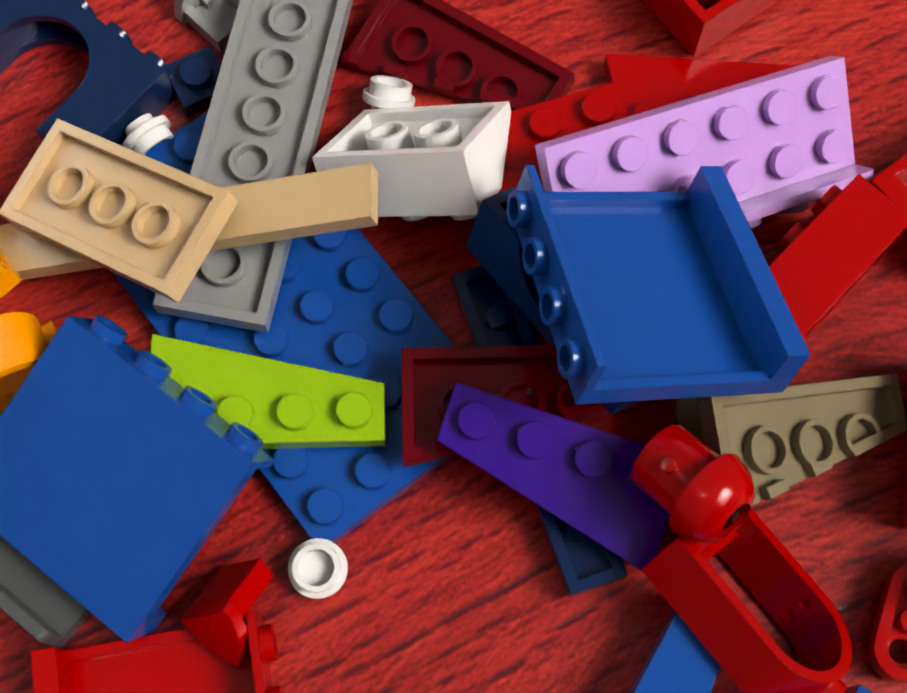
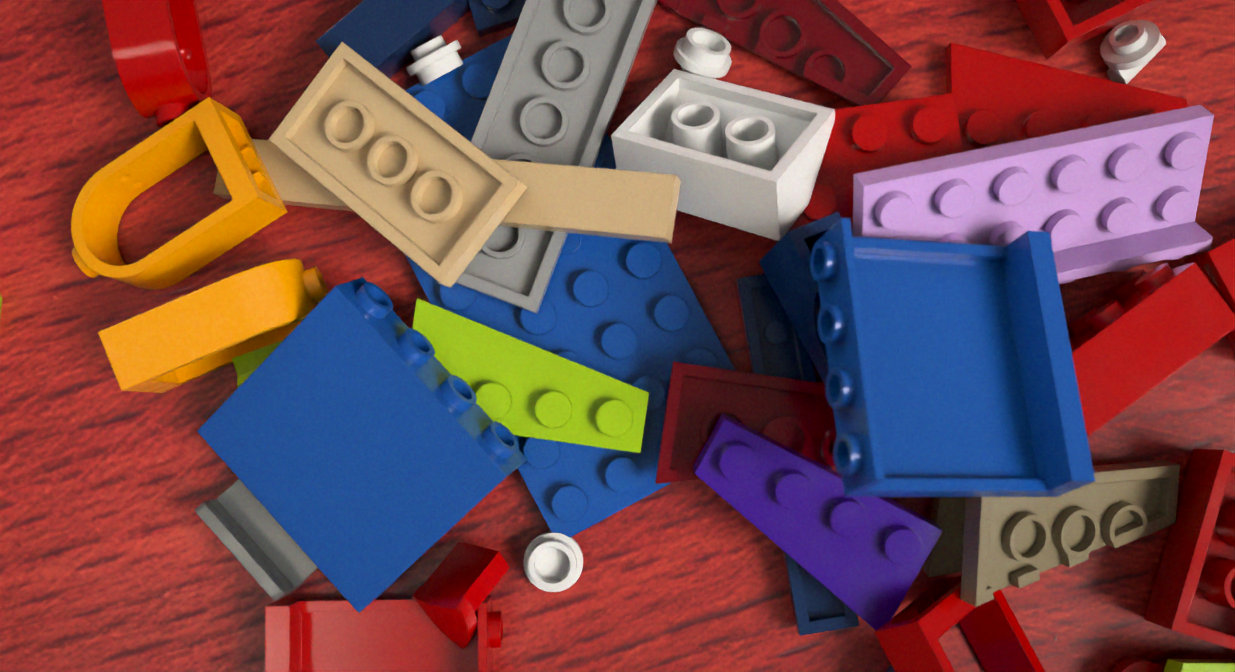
camera: 10 degrees right, 15 degrees up
(694, 485) = (947, 578): red piece -> none
(764, 35) = (1130, 48): none -> white plate

